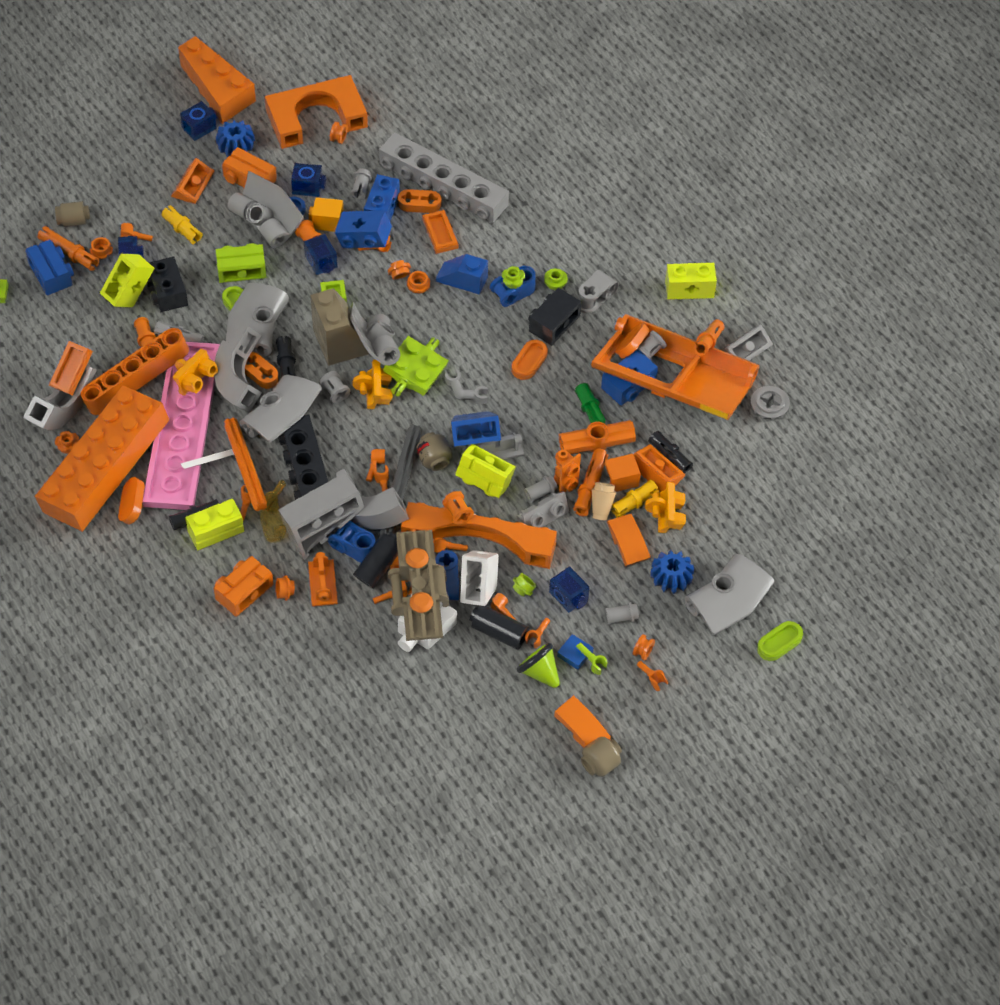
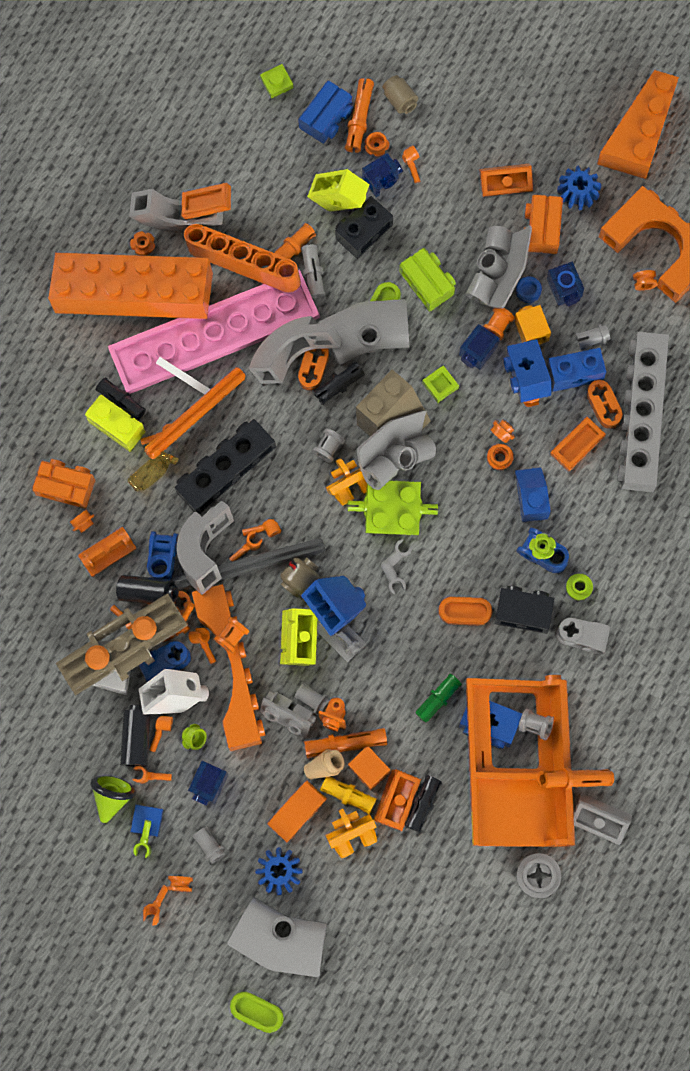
camera: 70 degrees right, 20 degrees up
(131, 500) = (105, 336): orange tile -> none
(181, 224) = (446, 199): yellow pin -> none
(190, 372) = (264, 308): light orange hips -> none
(198, 120) = (581, 141): clear blue brick -> none
(281, 407) = (270, 411): light grey panel -> none
(319, 512) = (160, 511): light grey wedge -> none
(580, 722) = (67, 866): orange slope -> none
(601, 756) = (39, 900): dark tan head -> none
(607, 435) = (388, 710): orange piece -> none
(632, 340) = (530, 703): orange tile -> none
(690, 281) = (647, 724): neon yellow brick -> none

